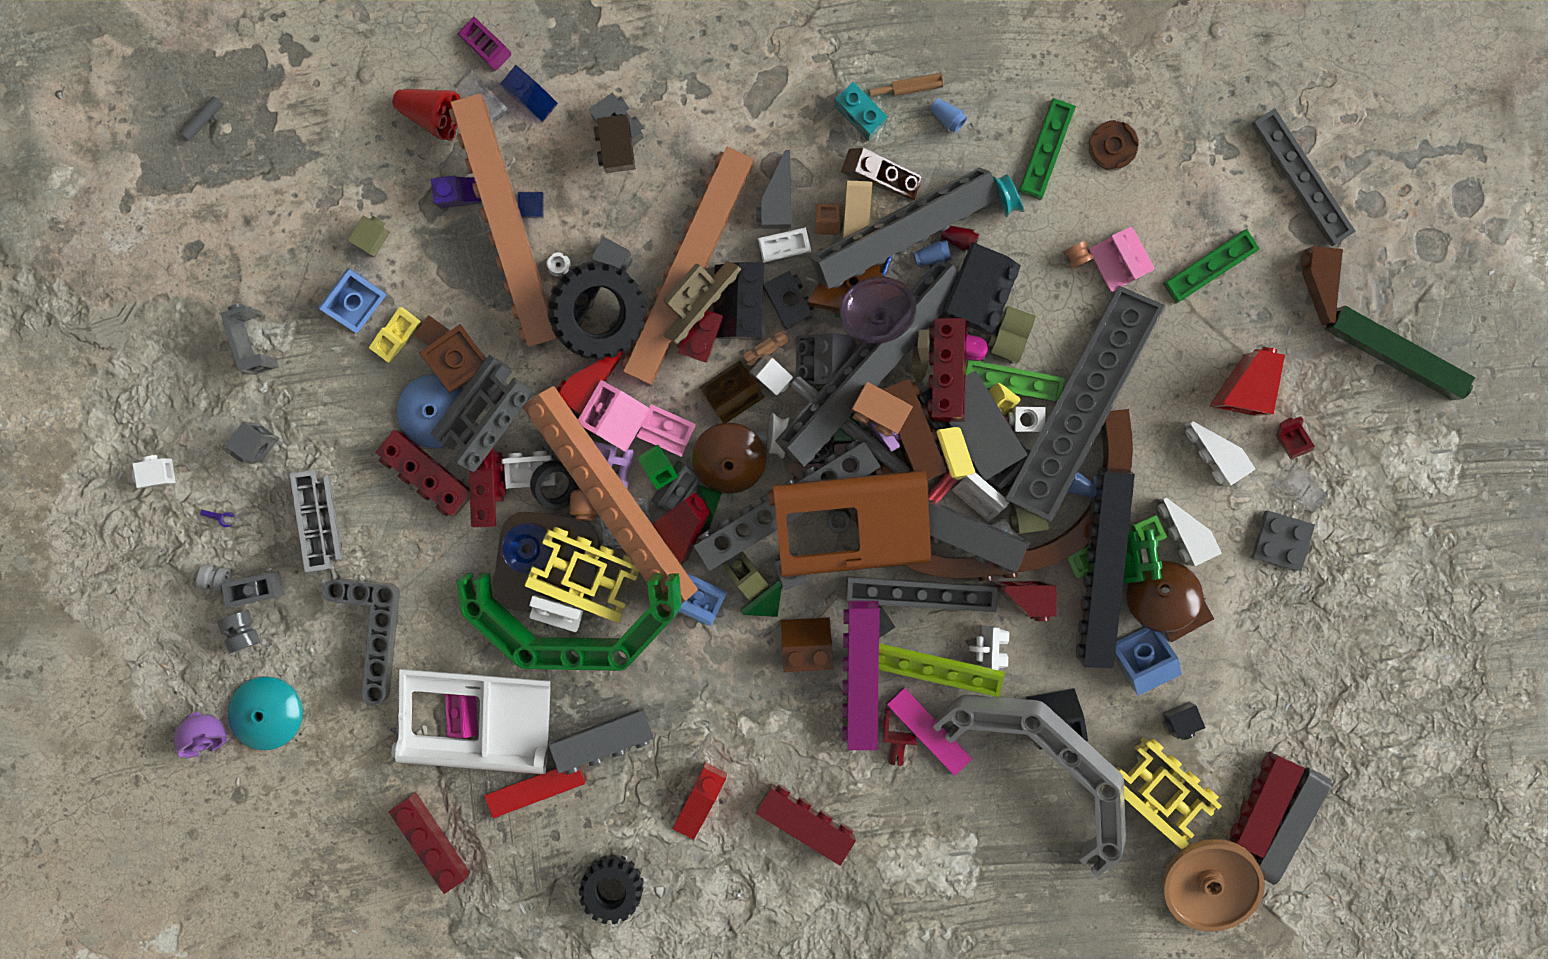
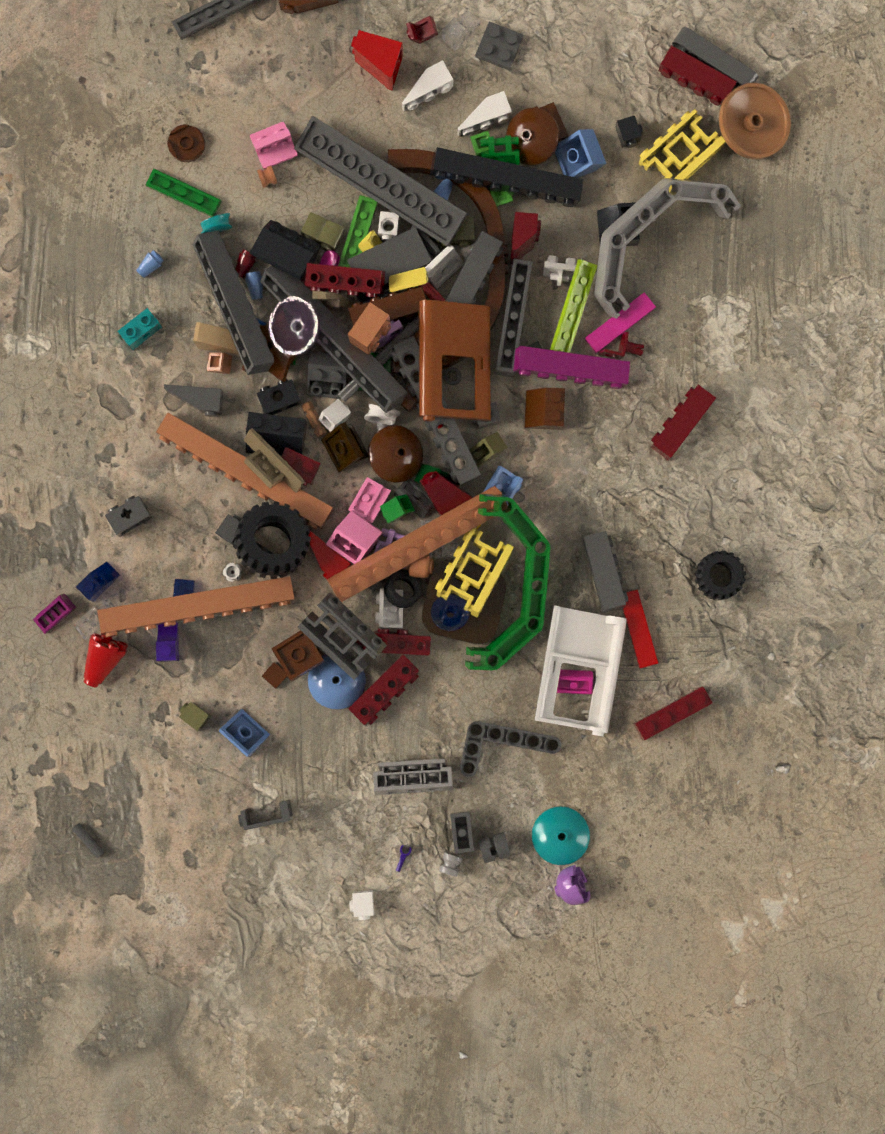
camera: 85 degrees left, 5 degrees down
(251, 442) = (347, 821): dark grey brick -> none
(395, 334) = (274, 704): light yellow slope -> none
(555, 612) = (502, 595): white bracket -> none
(615, 144) = (145, 514): dark brown brick -> none
(700, 801) = (658, 501): red slope -> none
(766, 603) = (510, 436): dark green slope -> none
(784, 245) = (236, 397): white plate -> none
(883, 173) = (184, 324): reddish brown slope -> none
(910, 85) = (124, 292): medium nougat axle -> none
(1211, 266) = (285, 79): green tile -> none

